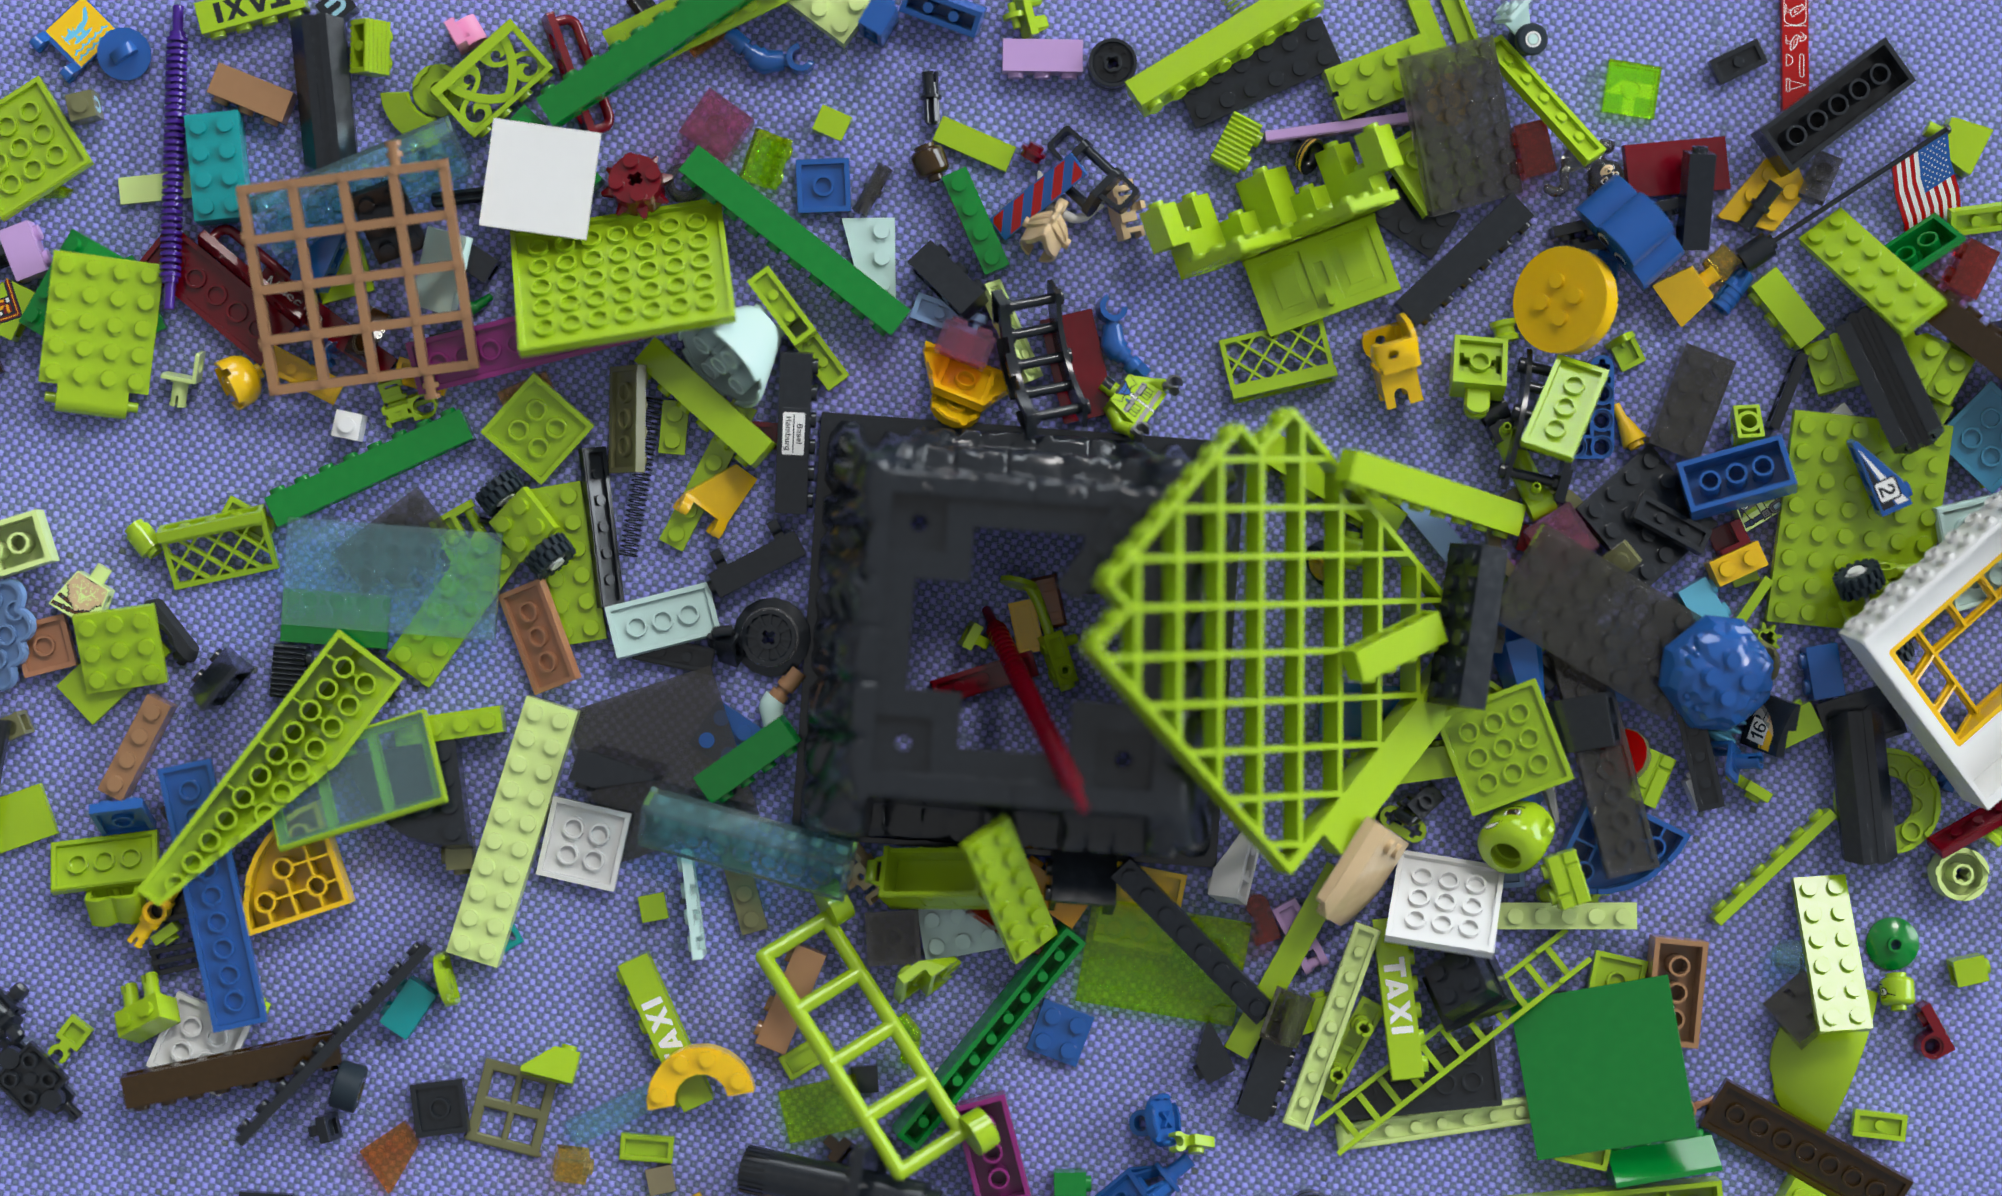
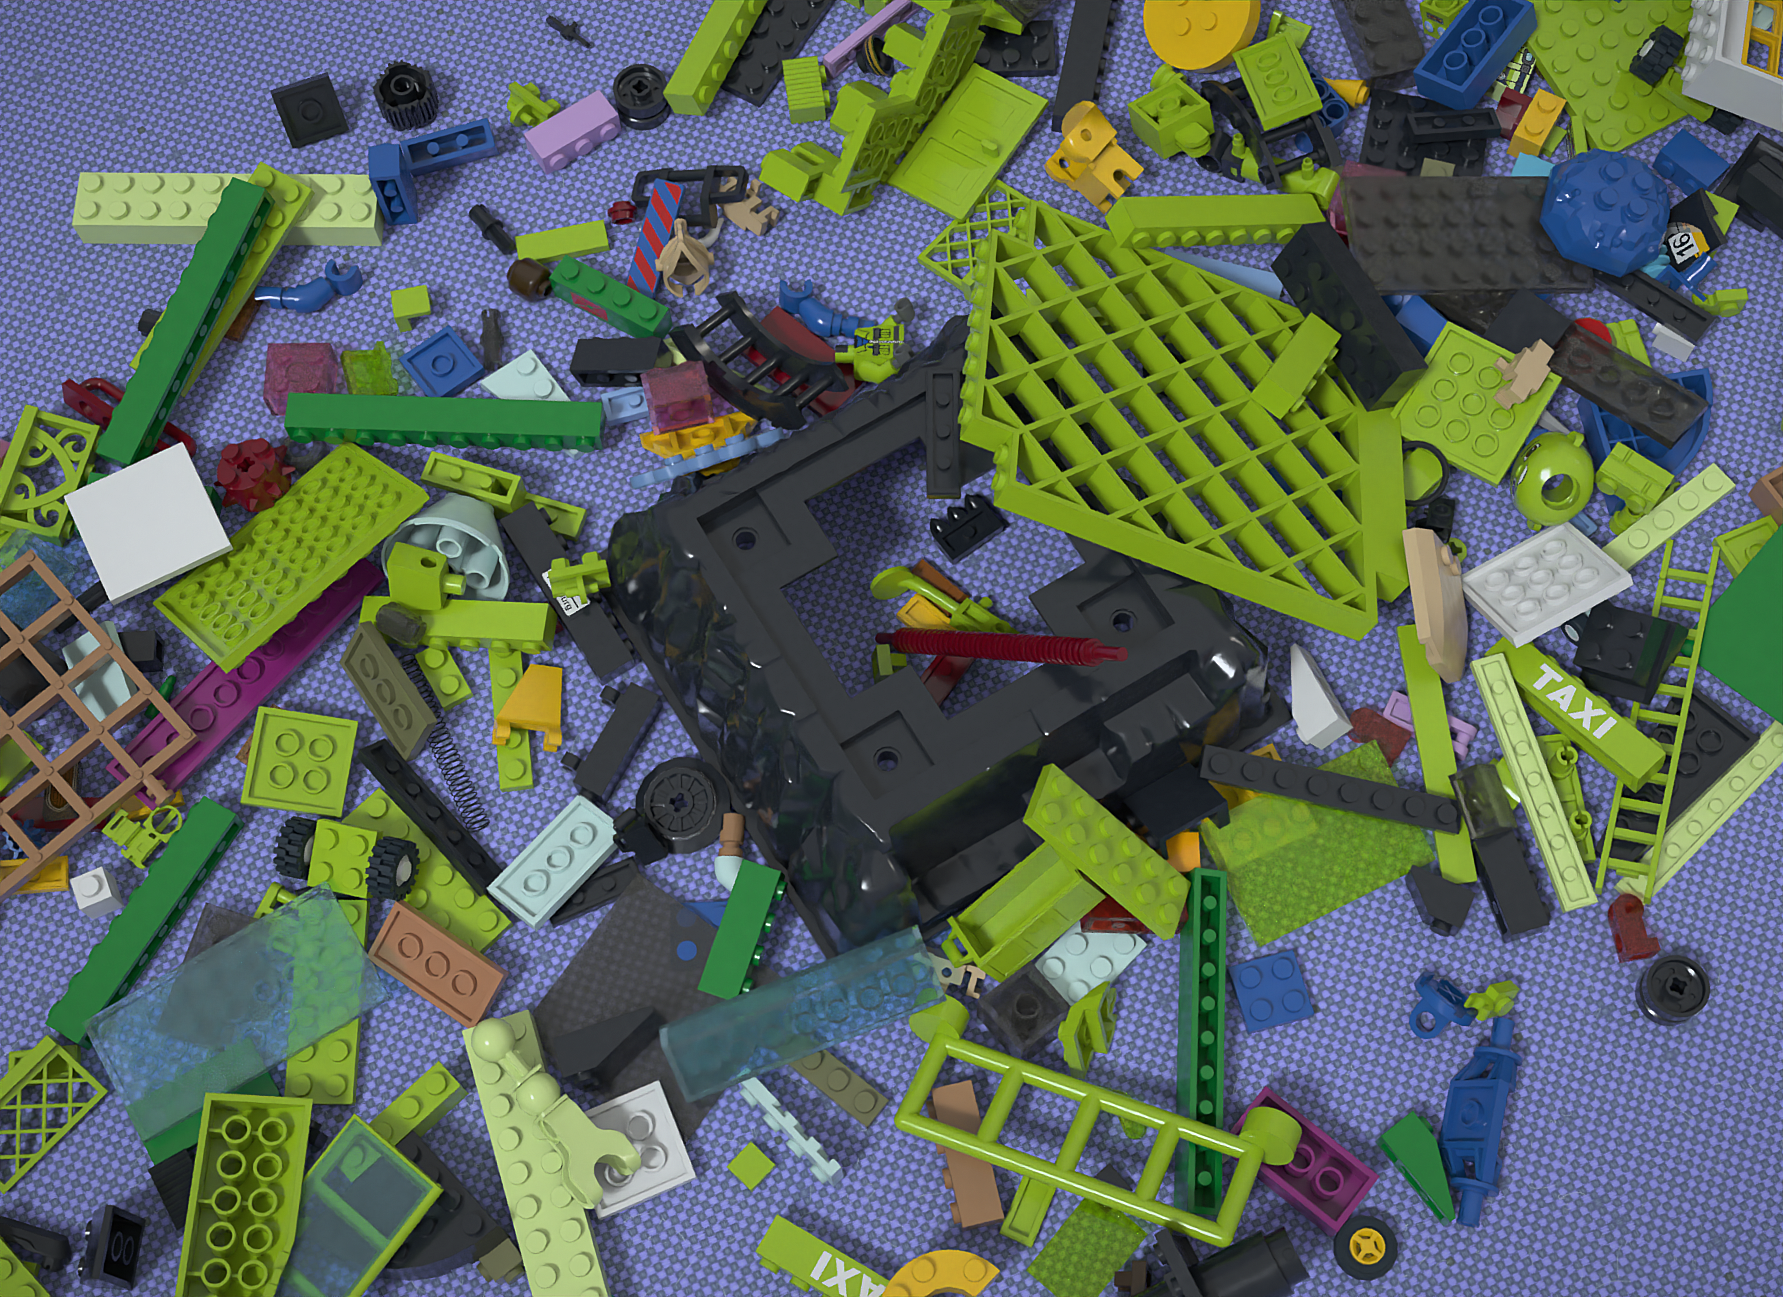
camera: 35 degrees left, 20 degrees down
(548, 799) = (558, 1117): none -> yellowish green piece
(664, 383) = (400, 623): none -> clear smoke brick
(698, 363) = (421, 578): none -> lime torso
(794, 431) = (578, 579): none -> lime hips
(948, 417) = (706, 457): none -> medium blue plate
(1321, 1150) = (1629, 930): none -> clear red leg
(1446, 781) = (1445, 472): none -> black tyre
(1550, 758) = (1527, 373): none -> tan piece

